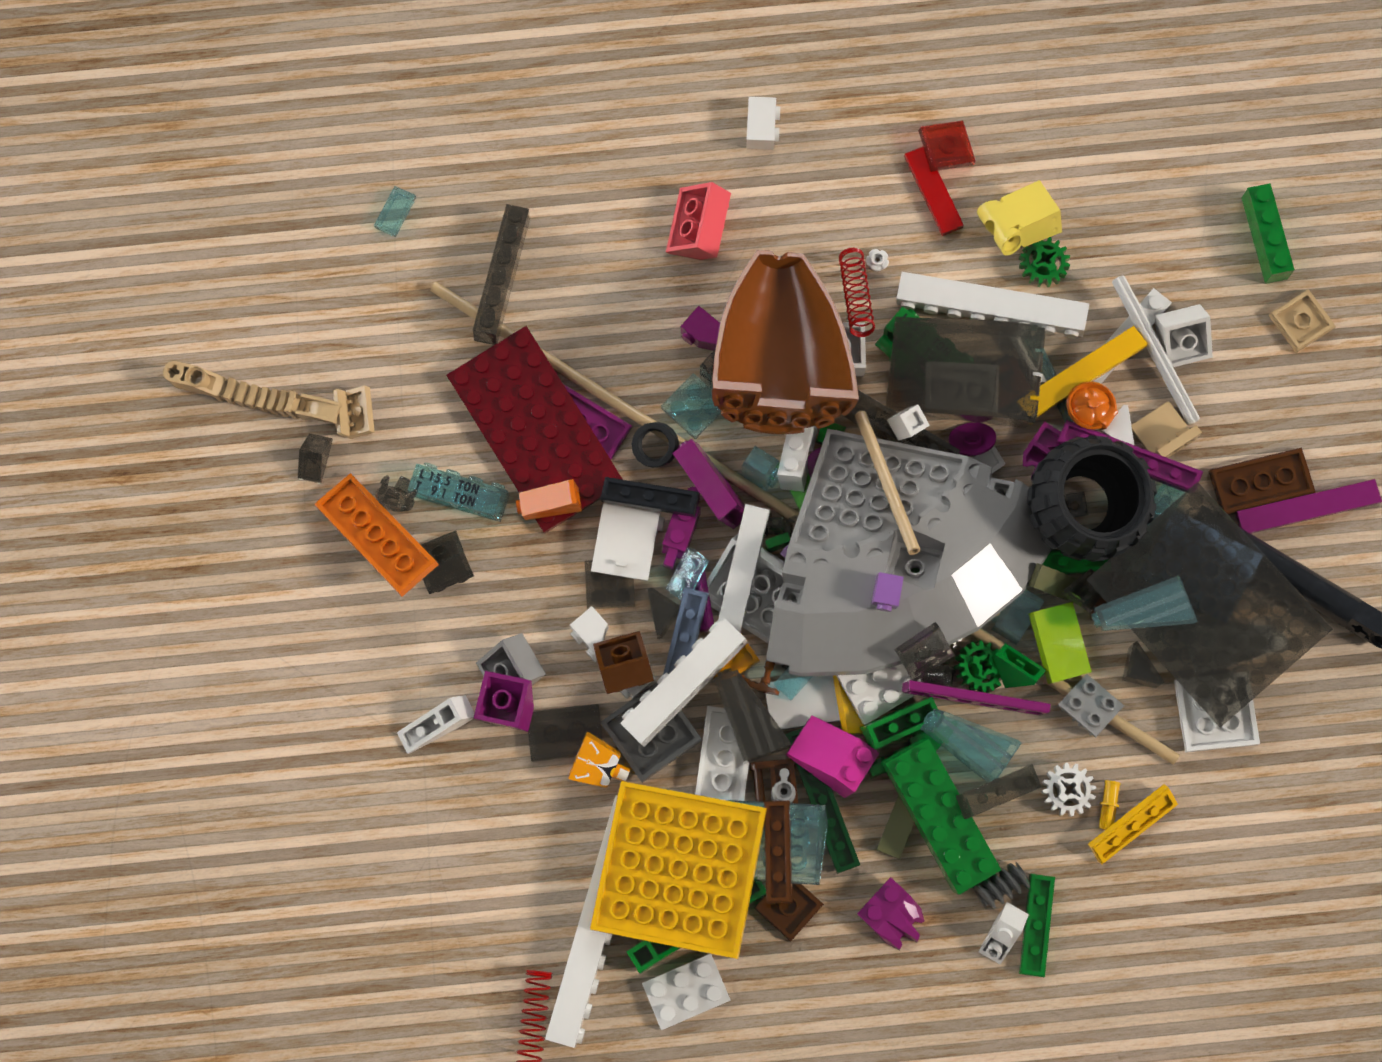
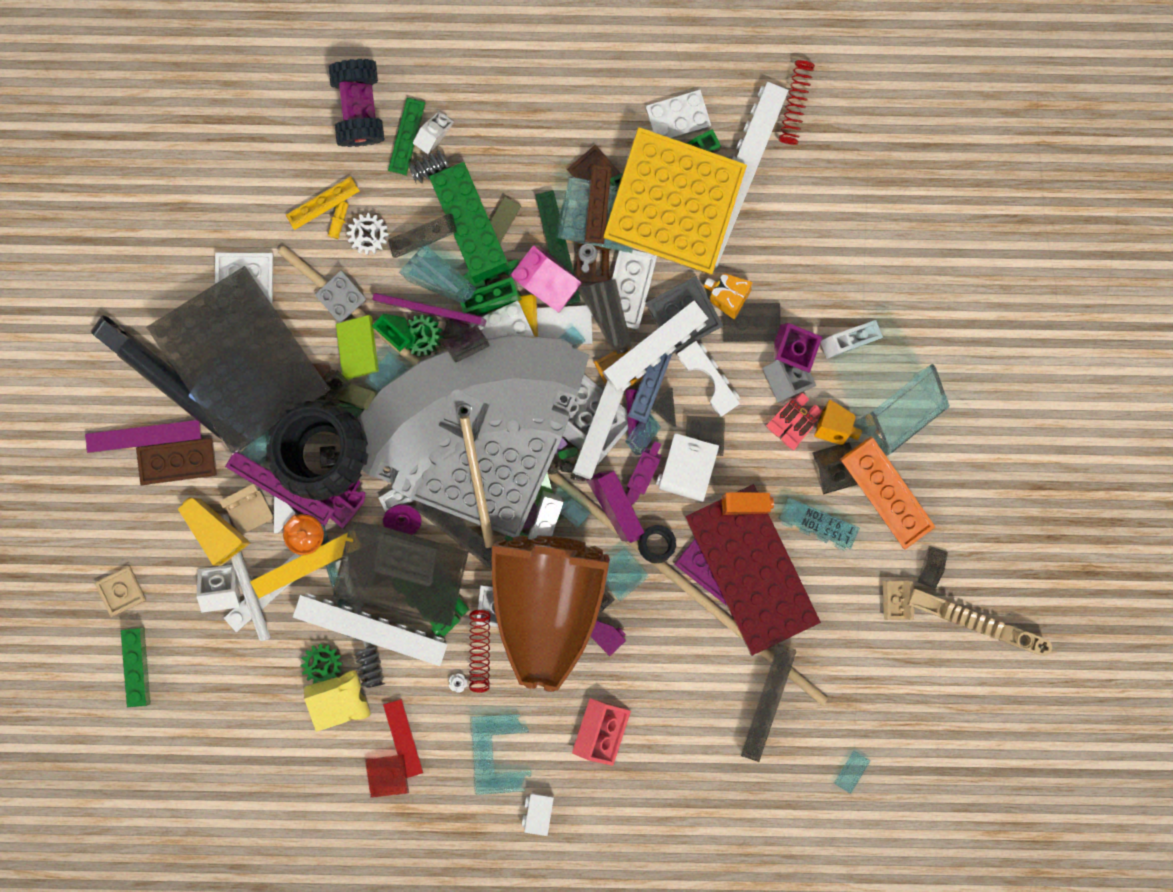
camera: 170 degrees left, 10 degrees up
(354, 623) = (906, 411): none -> clear light blue windscreen
(390, 496) = (873, 525): clear smoke piece -> none
(446, 613) = (836, 424): none -> light orange torso
(500, 612) = (799, 417): none -> coral hips
(623, 662) = (701, 366): reddish brown slope -> none
(649, 496) = (666, 498): black tile -> none
(765, 681) = (591, 343): dark orange piece -> none
(829, 155) = (484, 777): none -> clear light blue wedge
(887, 591) = (489, 388): medium lavender brick -> none
(892, 914) = (515, 156): magenta plate -> none
(908, 422) = (453, 531): white brick -> none
(984, 262) = (369, 667): none -> dark grey piece
(1110, 957) = (357, 102): none -> black plate
(1140, 668) = (298, 321): clear smoke slope -> none
(1150, 607) = (285, 360): clear light blue slope -> none
(1204, 398) = (212, 531): none -> yellow slope

